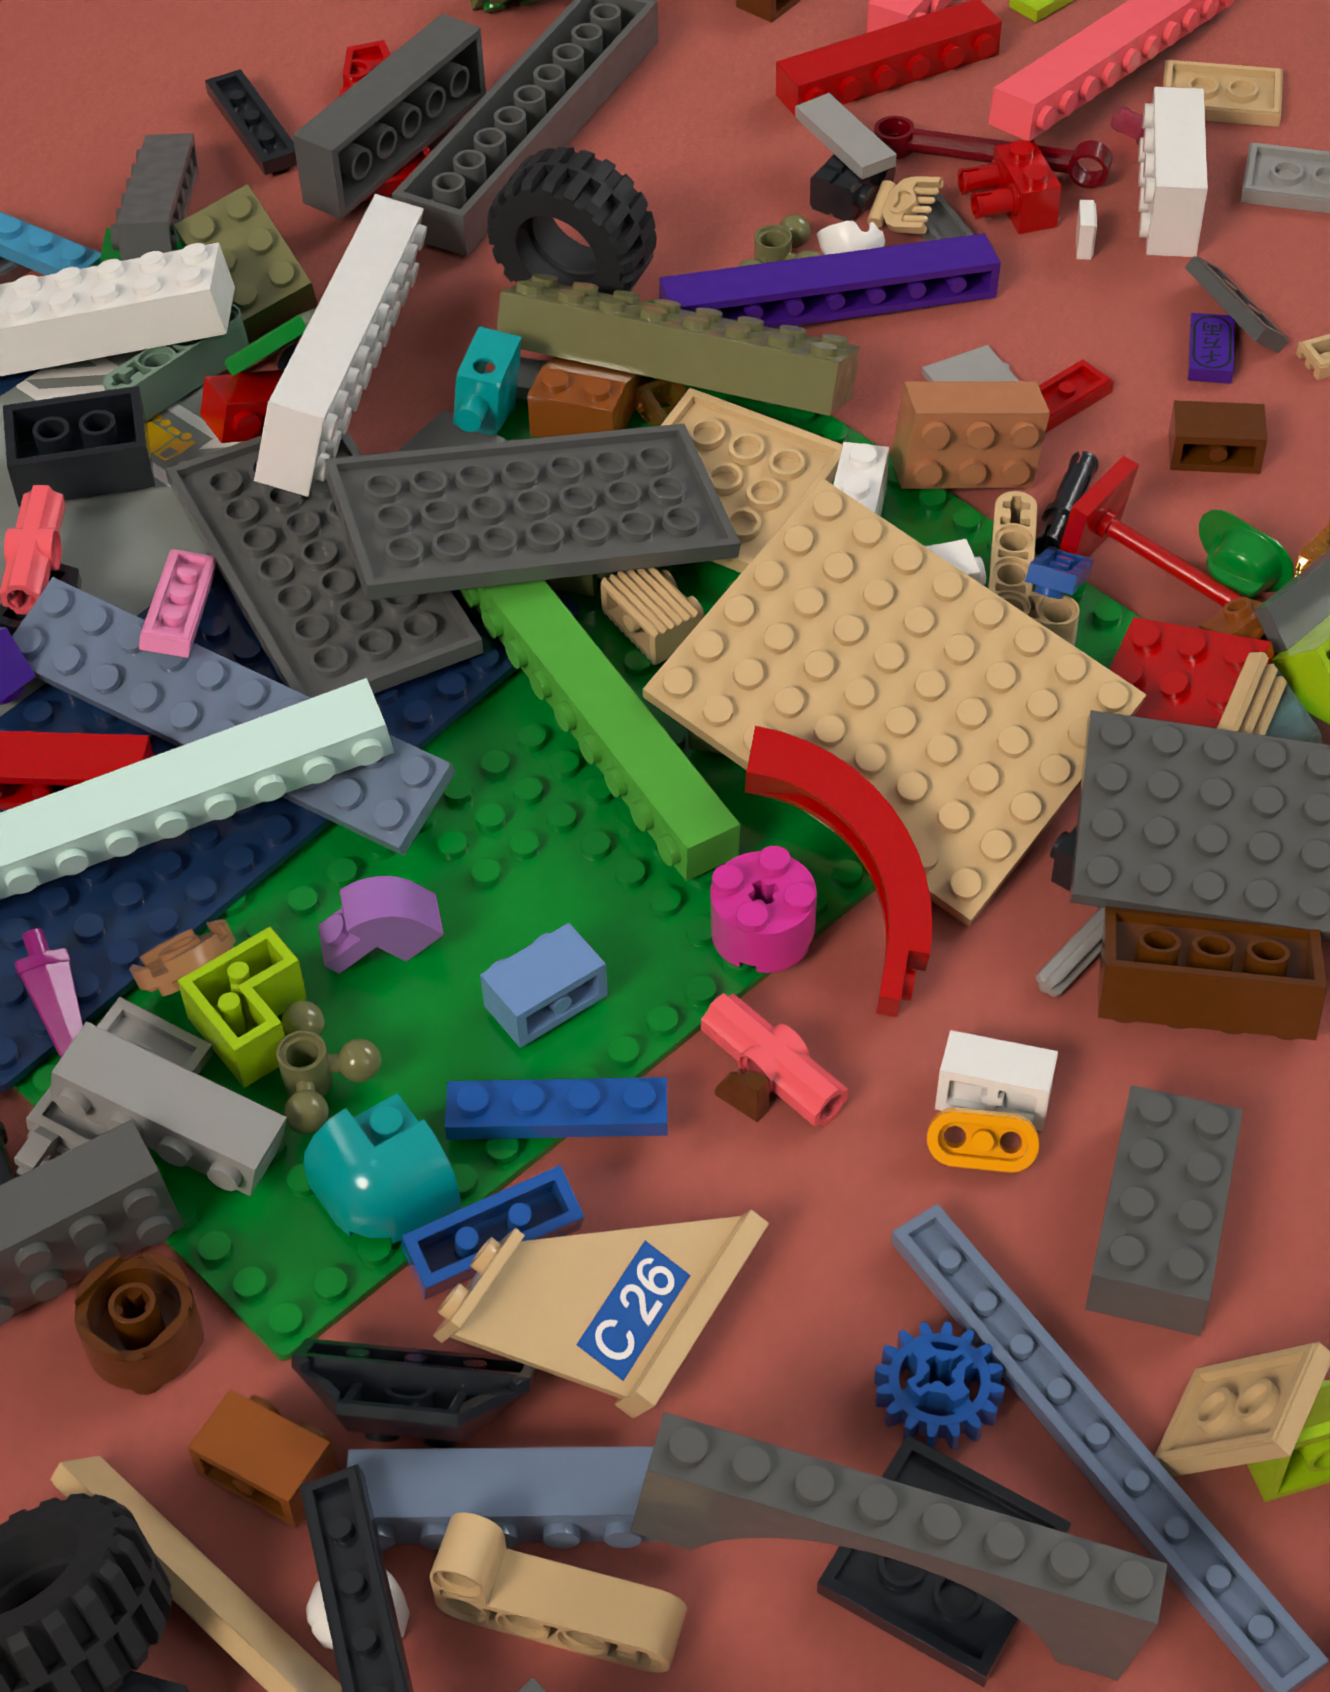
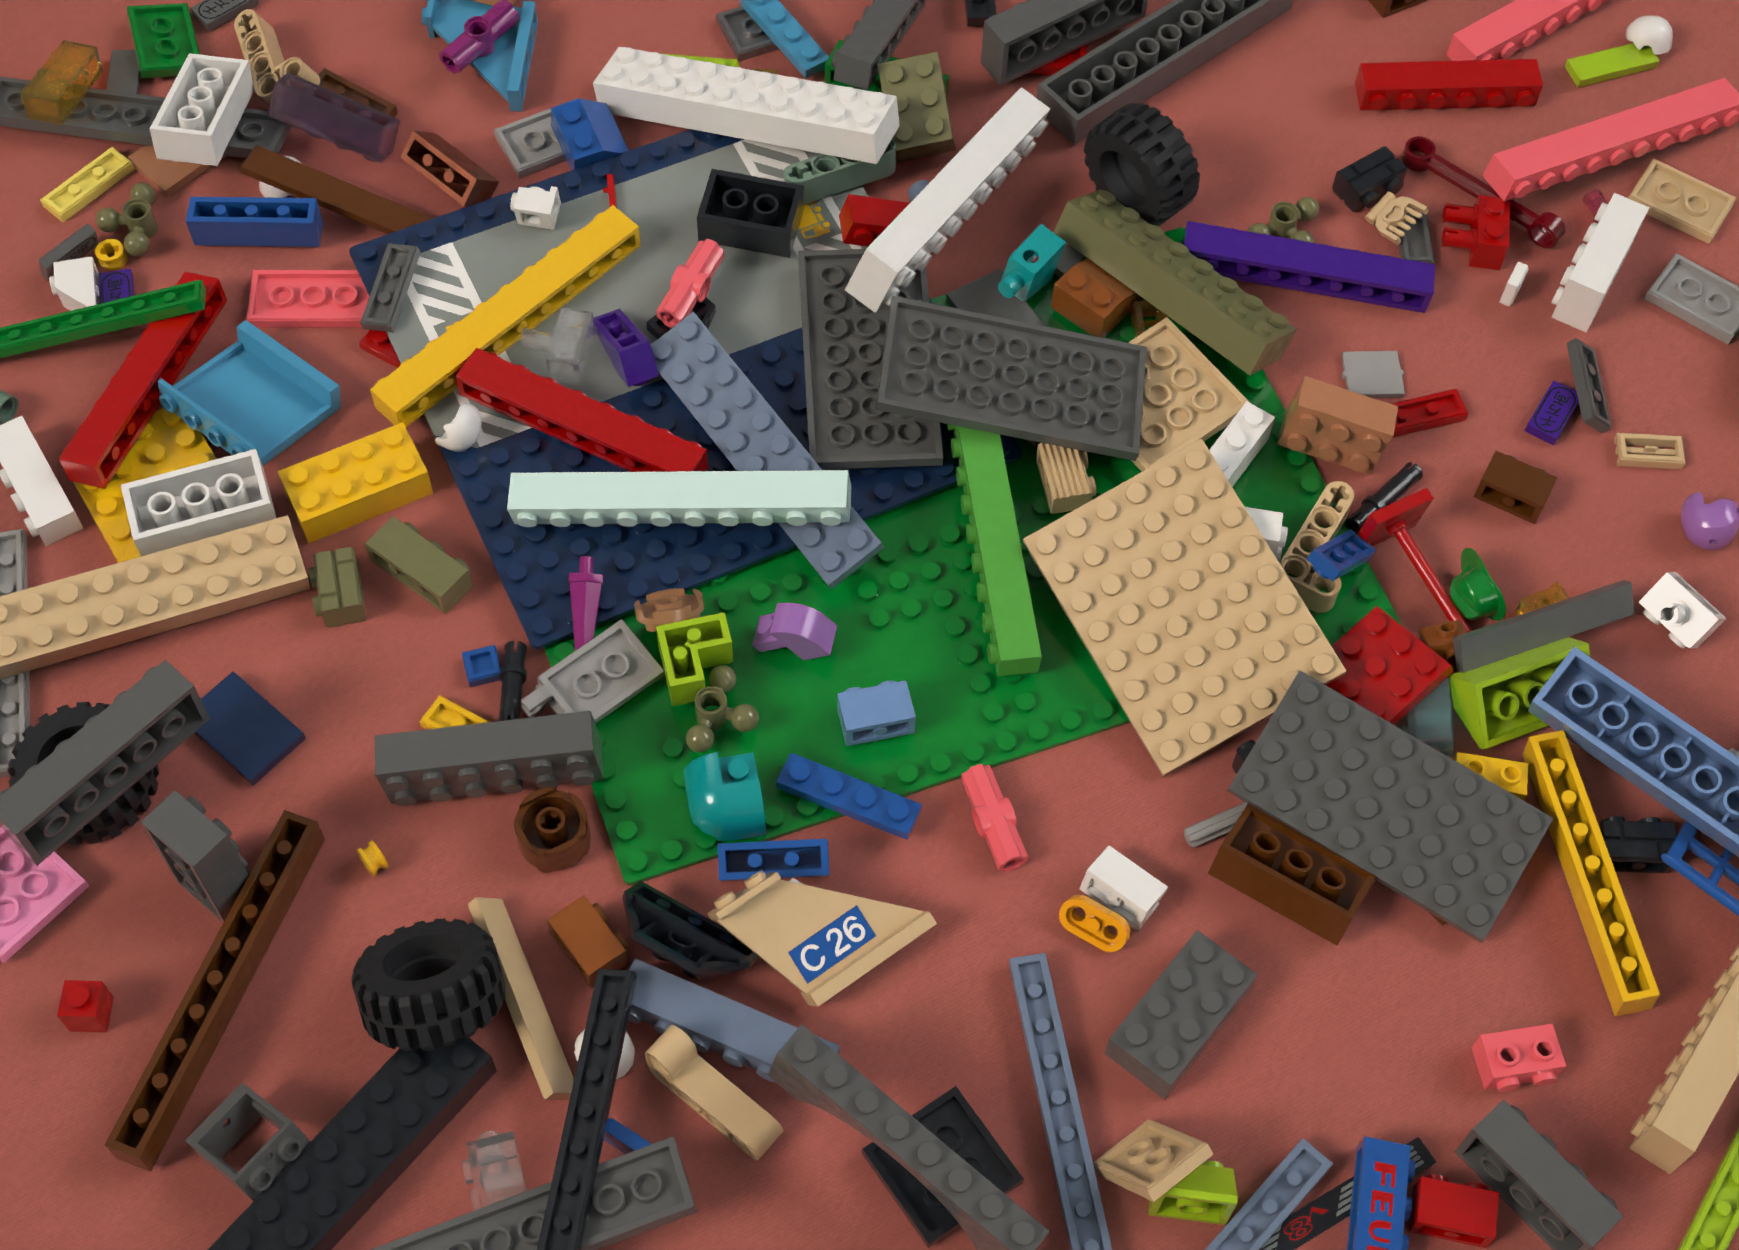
camera: 20 degrees right, 10 degrees up
(172, 1108) = (617, 707): light grey brick -> none
(178, 603) = (763, 359): bright pink tile -> none
(269, 344) = (905, 180): green tile -> none
(746, 1093) = (968, 832): reddish brown tile -> none
(763, 910) = (1031, 718): dark pink brick -> none
(845, 136) = (1376, 147): light grey tile -> none
(849, 237) = (1336, 235): white hair -> none
(855, 810) = (1107, 657): red arch -> none
(939, 1385) = (1004, 1059): blue gear -> none
(1253, 696) = (1416, 702): tan tile -> none

